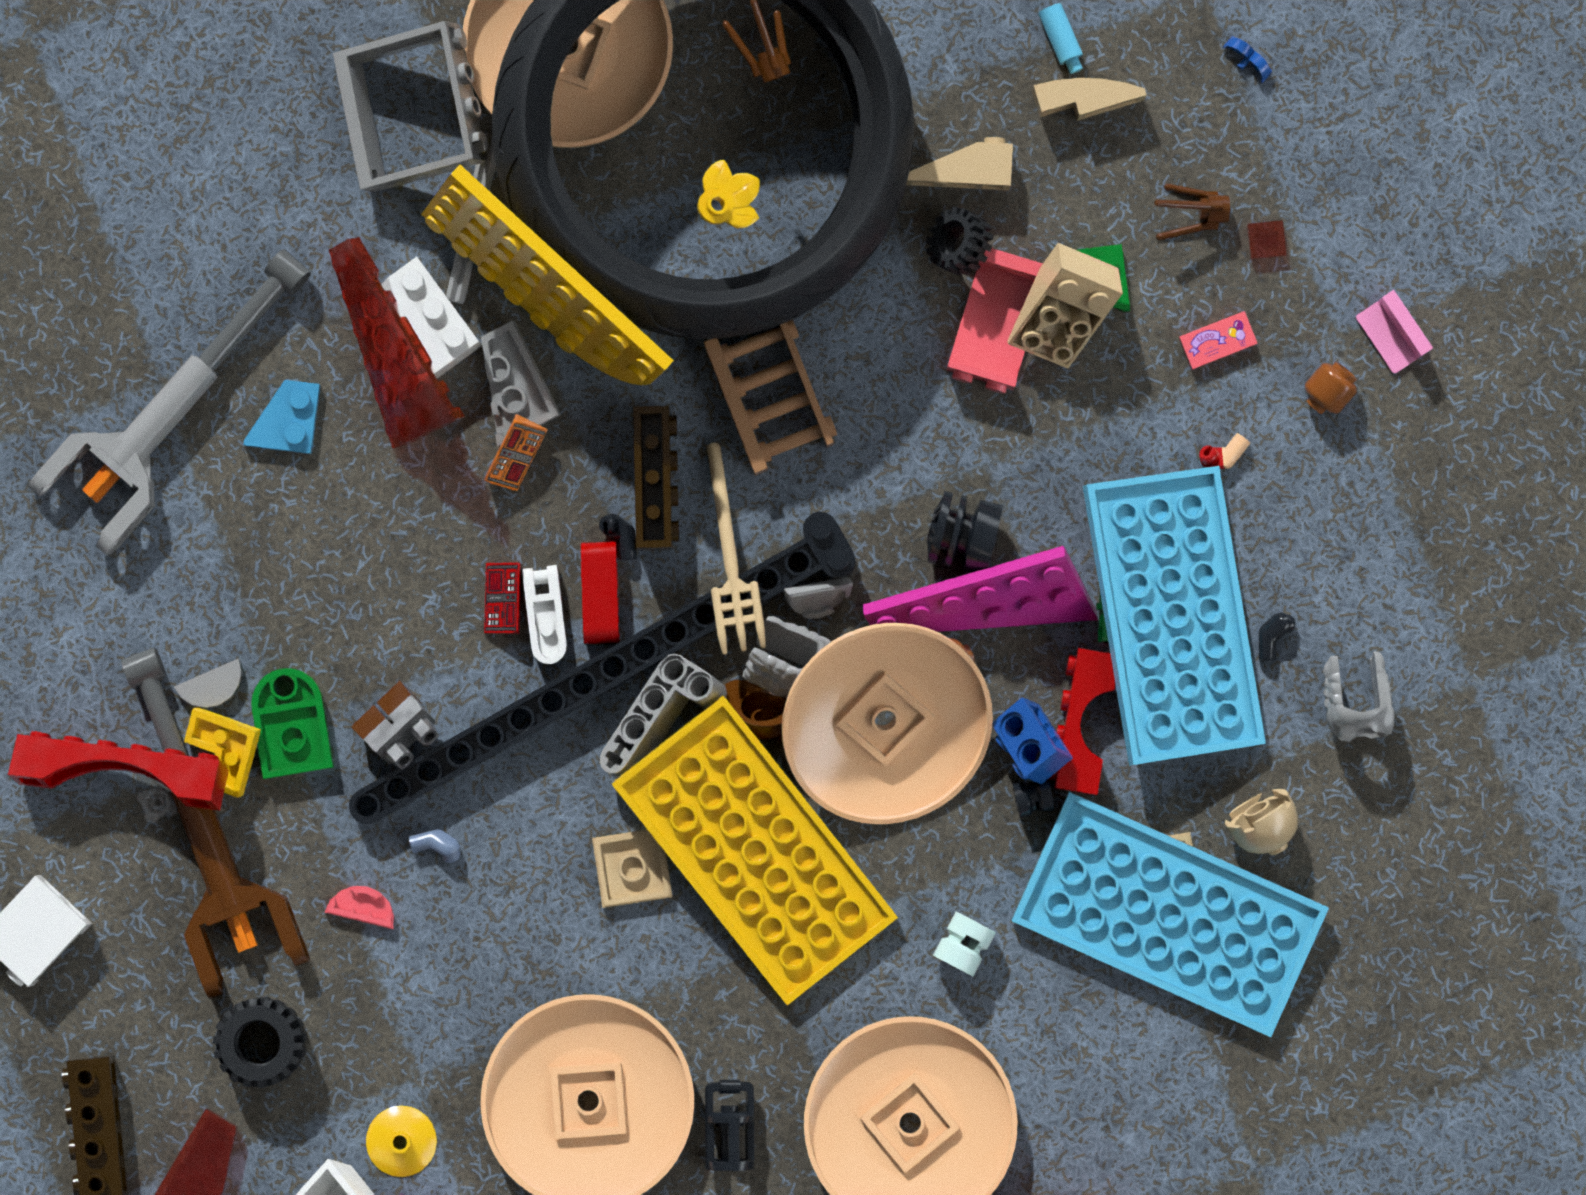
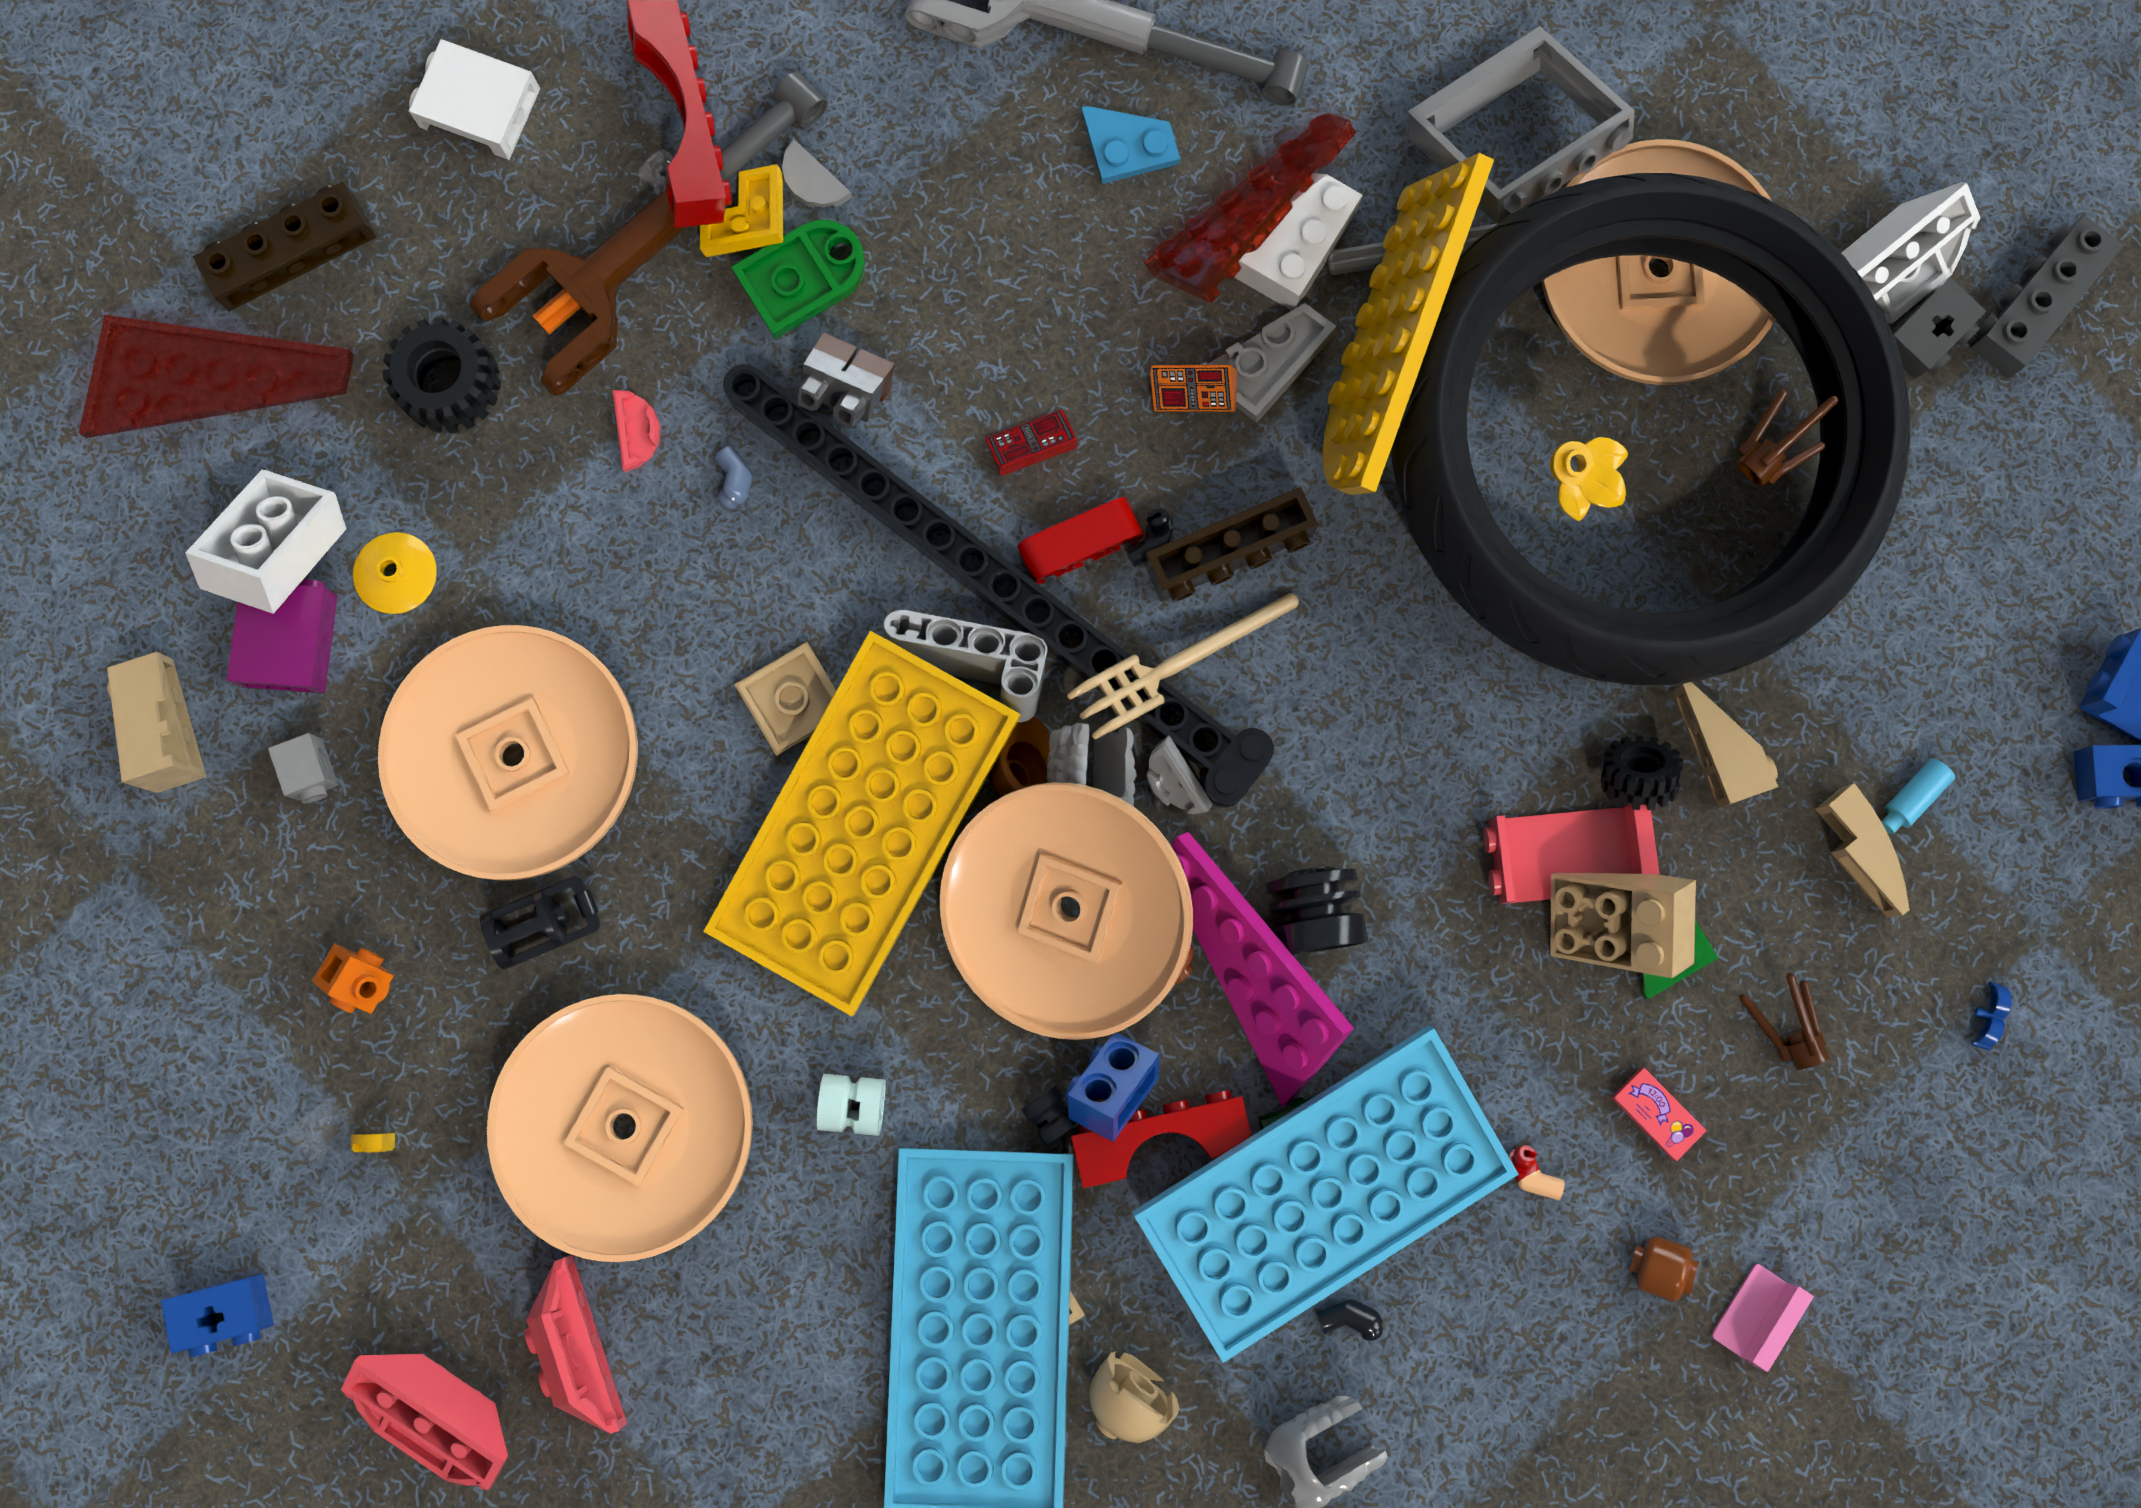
camera: 65 degrees right, 5 degrees down
(545, 615) = (1031, 493): white plate -> none
(748, 420) = (1368, 596): medium nougat fence -> none
(1266, 239) = (1797, 1122): clear red tile -> none

